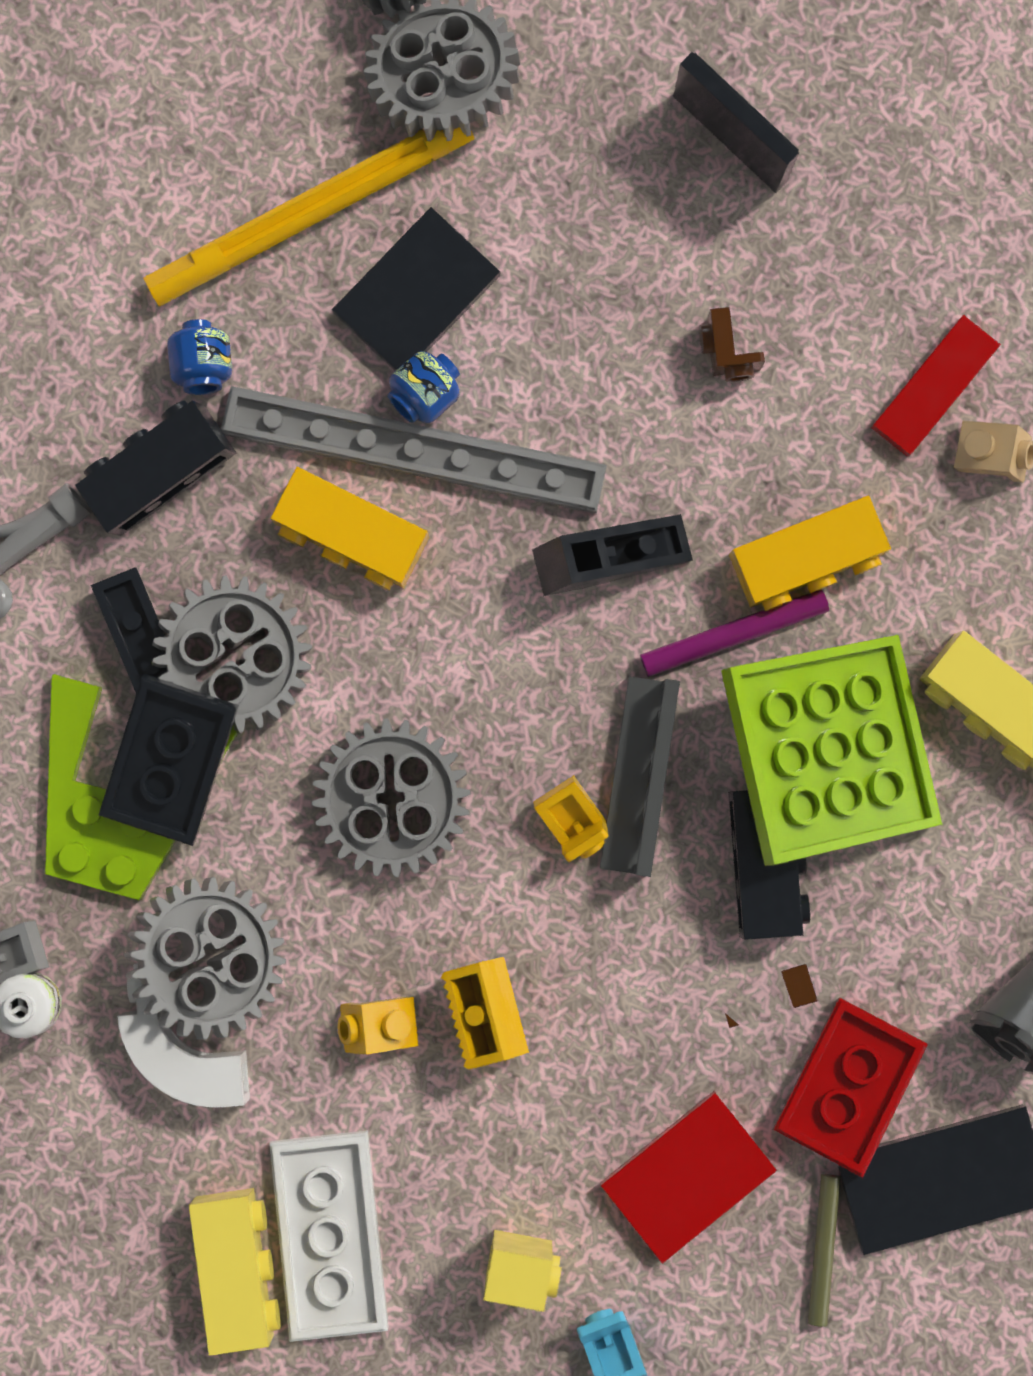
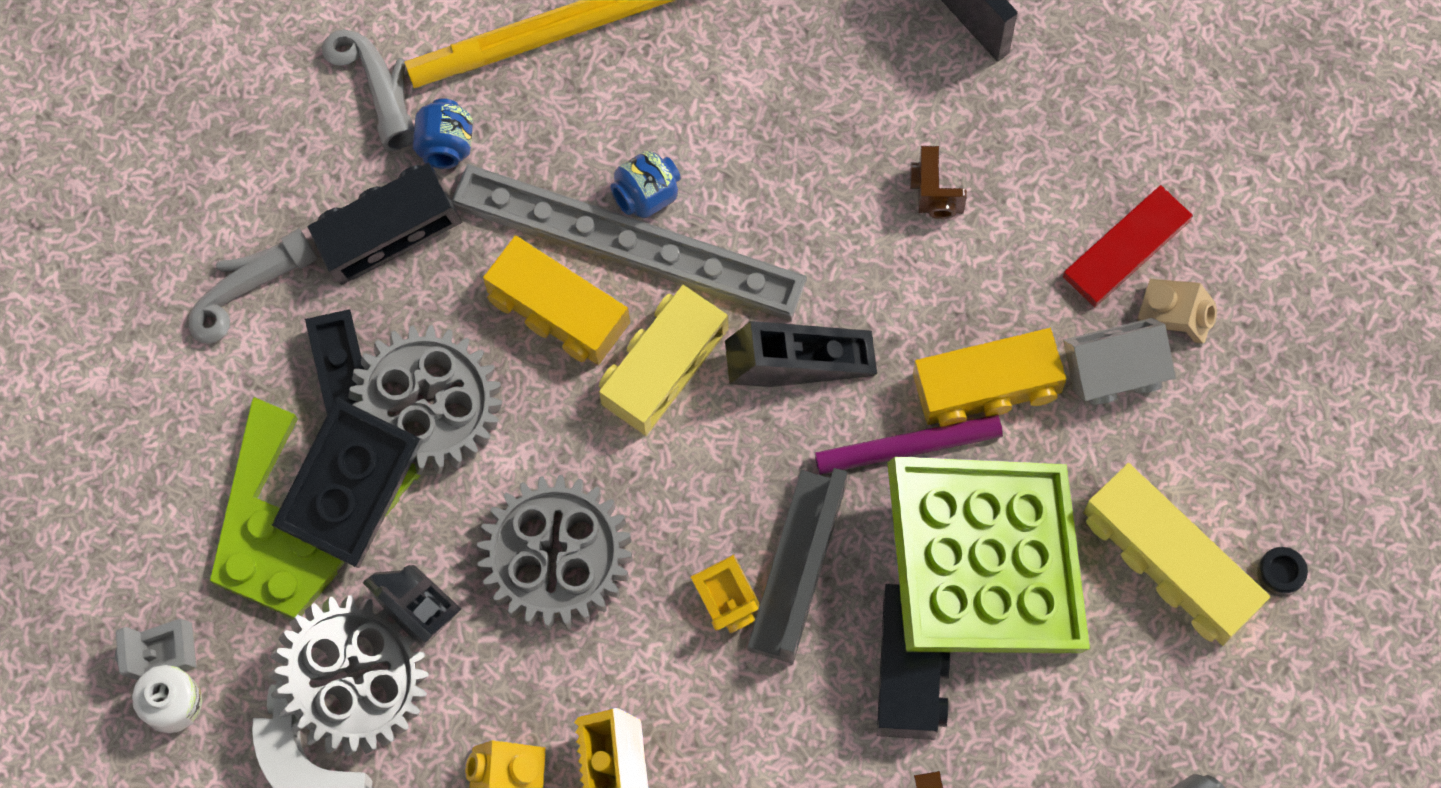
camera: 10 degrees right, 15 degrees down
(129, 310) = (387, 90): none -> light grey plant
(257, 873) = (413, 602): none -> black slope
(416, 290) = (652, 103): black tile -> none
(470, 576) = (662, 359): none -> light yellow brick
(942, 517) = (1119, 360): none -> light grey brick

